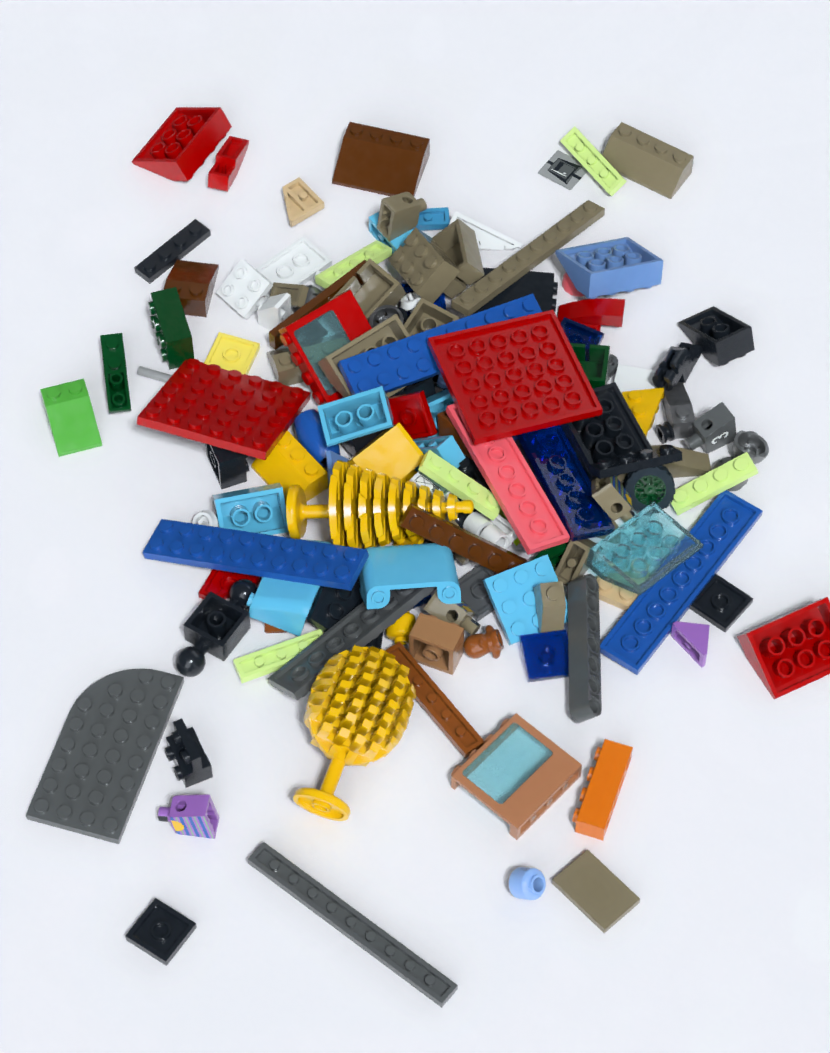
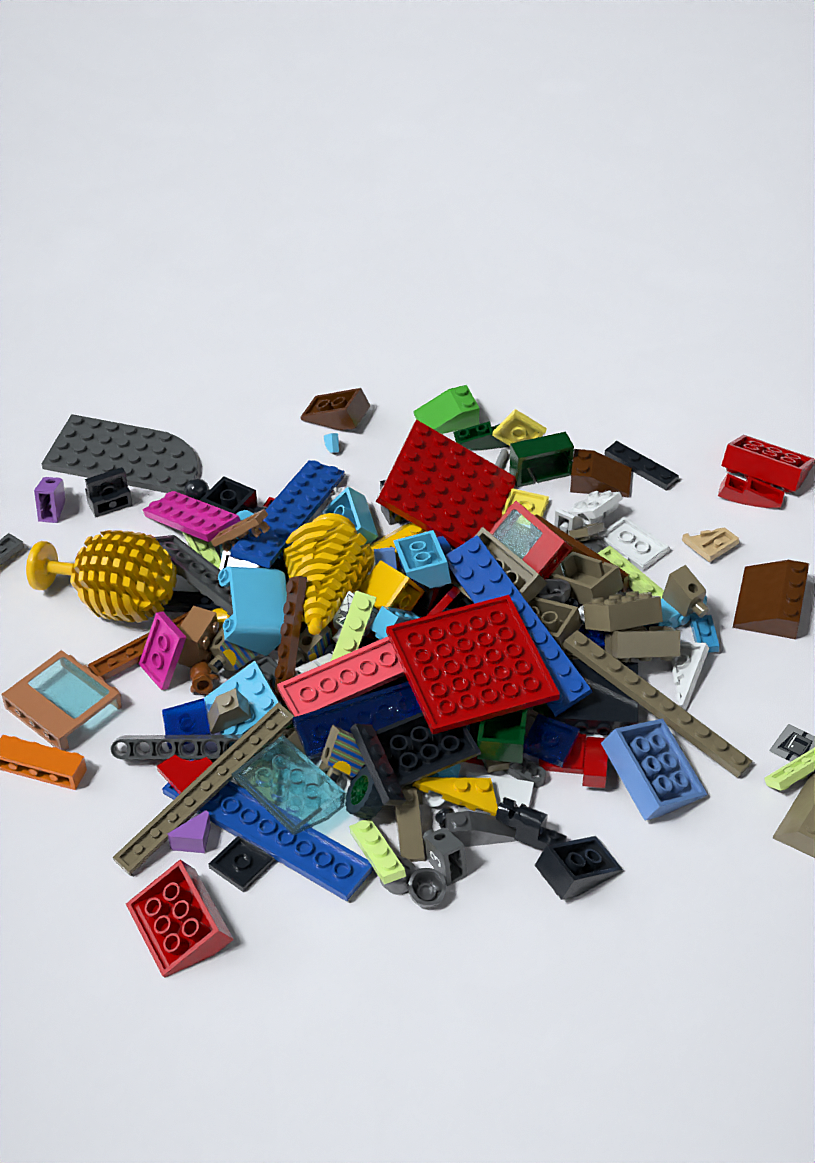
camera: 90 degrees right, 10 degrees down
(53, 527) = (338, 409): none -> reddish brown slope
(109, 532) = (332, 442): none -> medium azure tile
(133, 341) = (518, 428): none -> light yellow tile
(247, 656) = (190, 515): none -> dark pink plate
(319, 575) = (241, 529): none -> medium nougat plate
(464, 668) = (162, 650): none -> dark pink plate
(624, 646) = (182, 772): none -> red tile
(648, 623) = (202, 789): none -> dark tan plate

